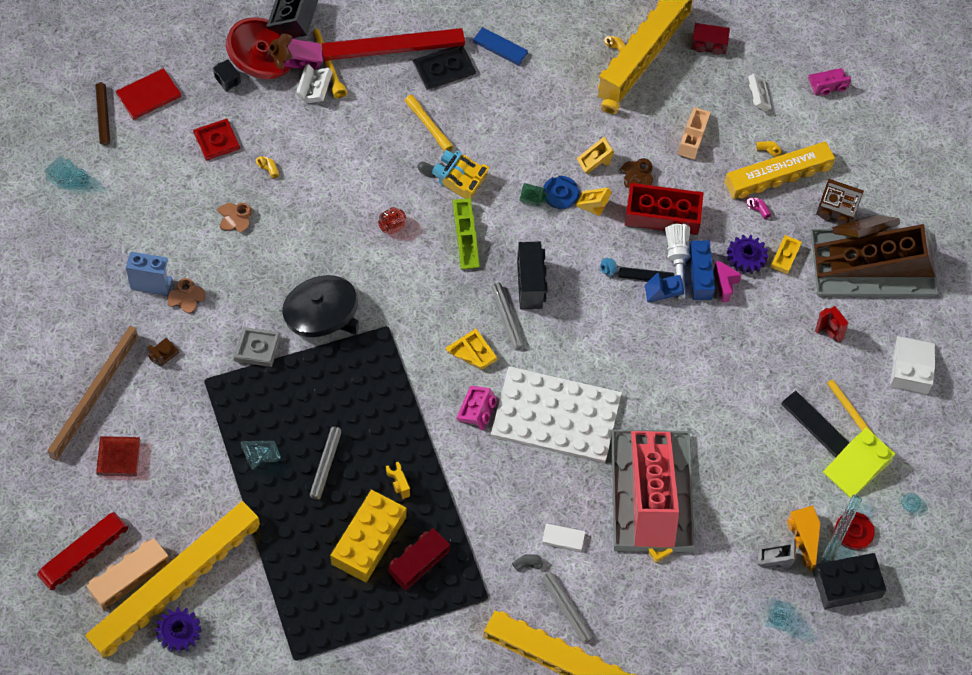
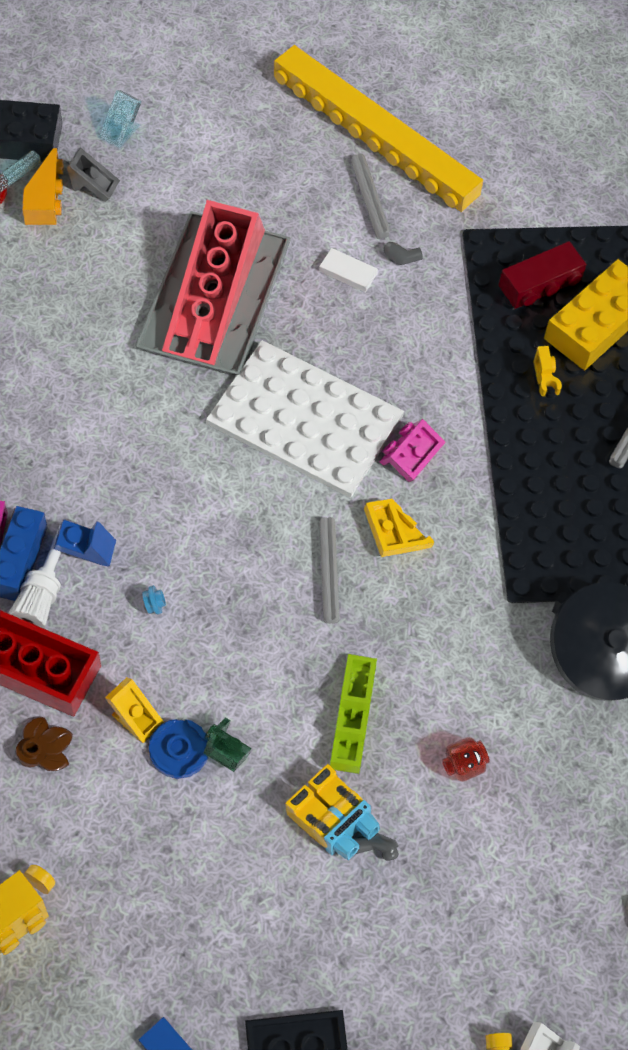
camera: 165 degrees left, 0 degrees up
(440, 138) = (369, 968): yellow piece -> none
(531, 275) = (278, 601): black brick -> none
(597, 154) = (102, 784): yellow slope -> none
(641, 274) = (101, 577): black axle -> none

